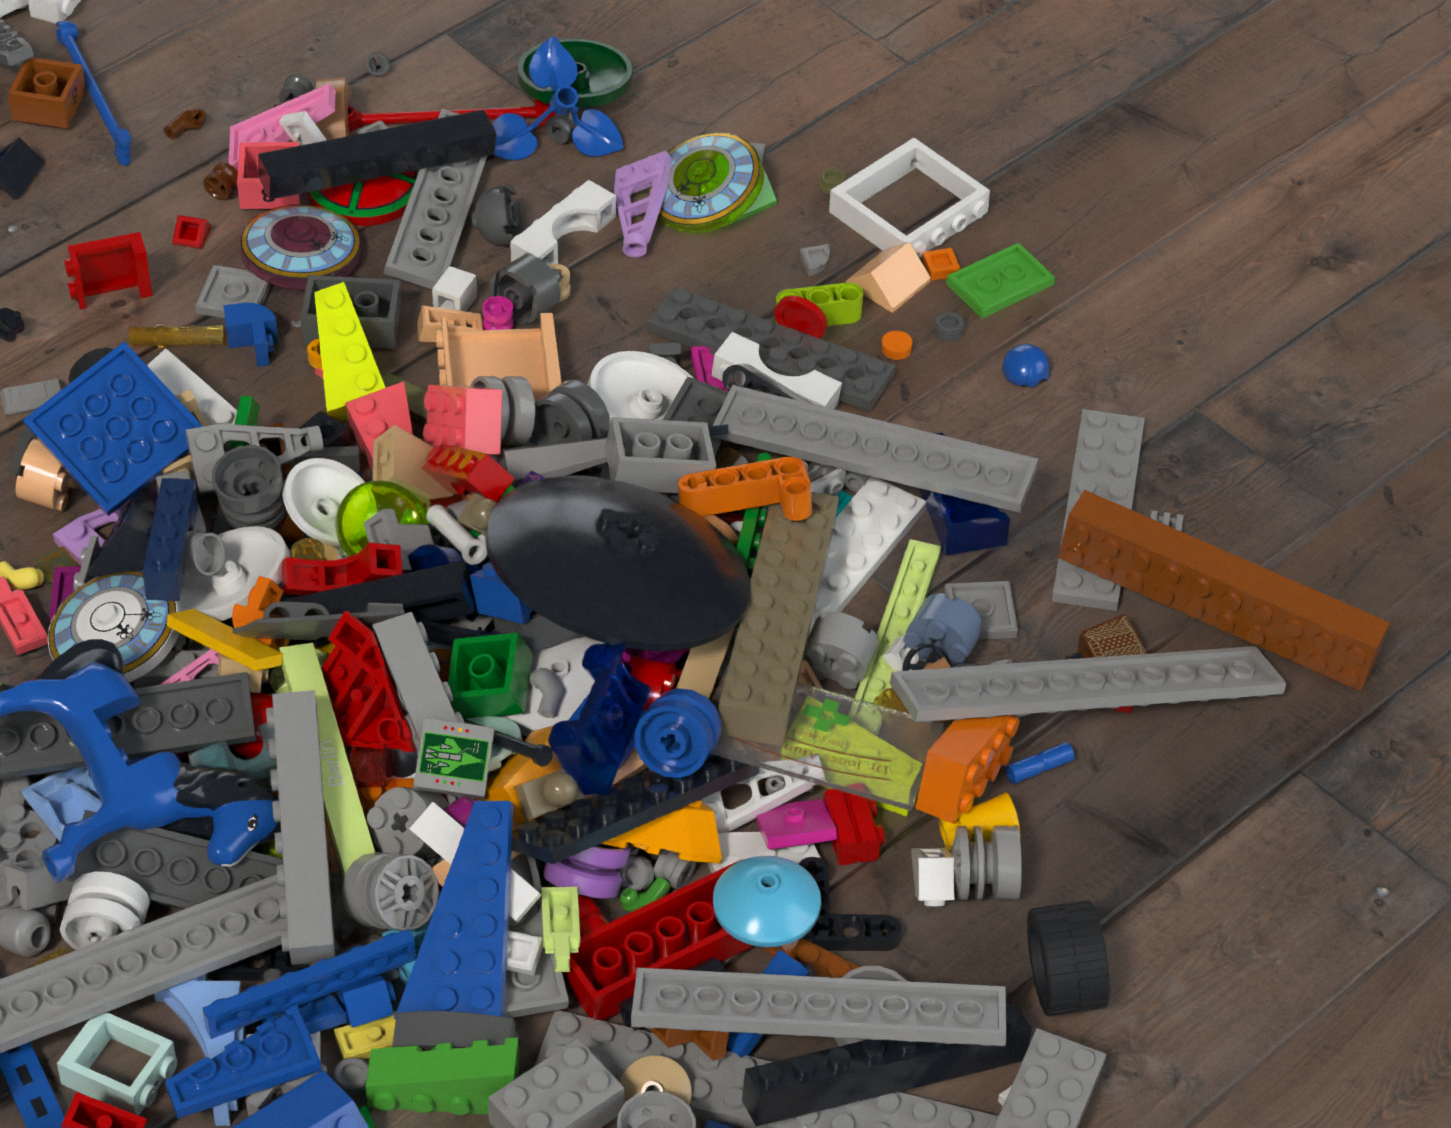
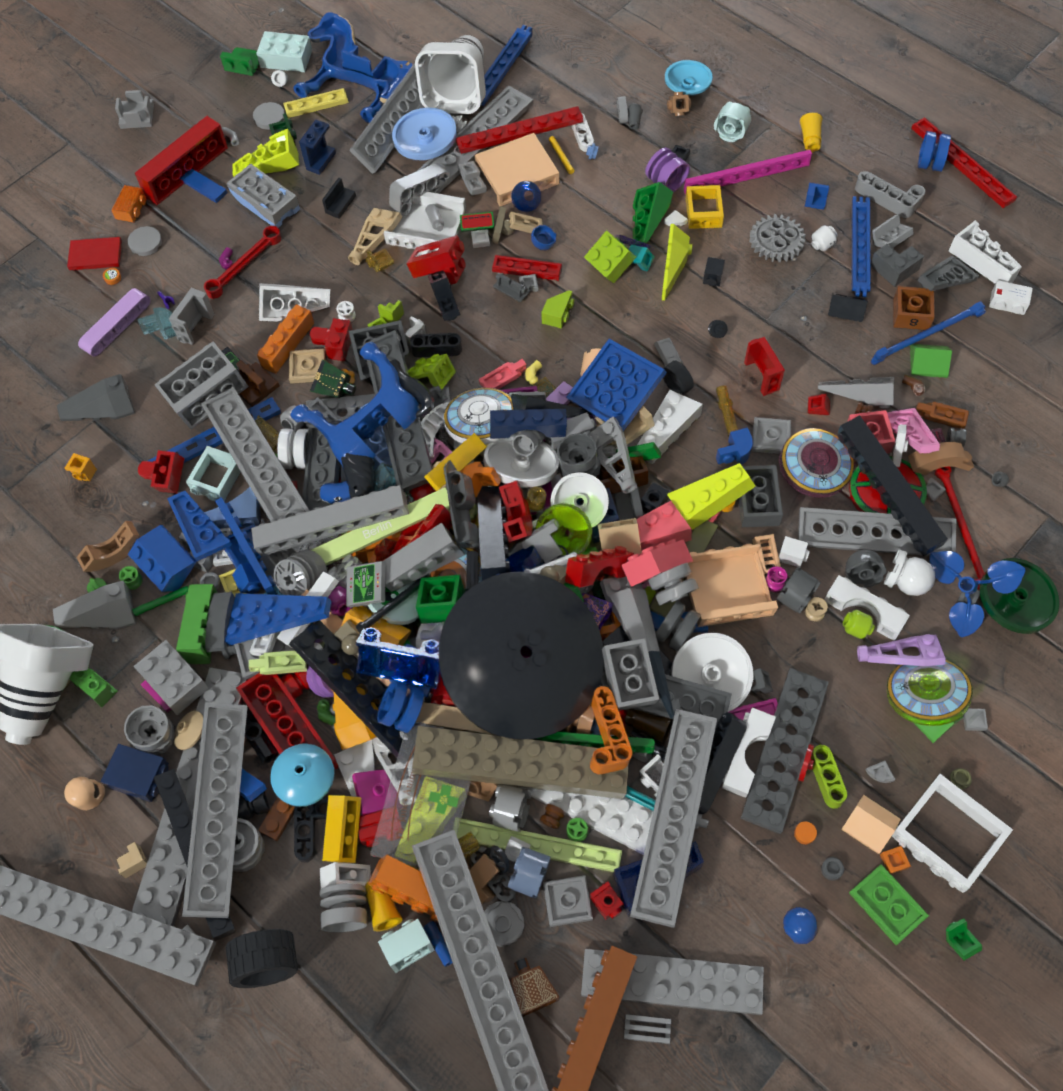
camera: 90 degrees right, 15 degrees up
(144, 96) = (930, 360): none -> bright green slope
(182, 168) = (875, 391): none -> light grey wedge
(250, 98) = (943, 414): none -> dark orange hinge
(524, 165) = (911, 575): none -> white tile
(589, 240) = (858, 624): none -> lime head
(855, 607) = (552, 816): none -> reddish brown wheel
(859, 862) = (341, 829): none -> yellow brick
(875, 585) = (578, 825): none -> bright green wheel
(985, 560) = (598, 897): none -> red brick
(1048, 786) = (405, 945): none -> light aqua brick
(1053, 215) = (962, 939): none -> green bracket

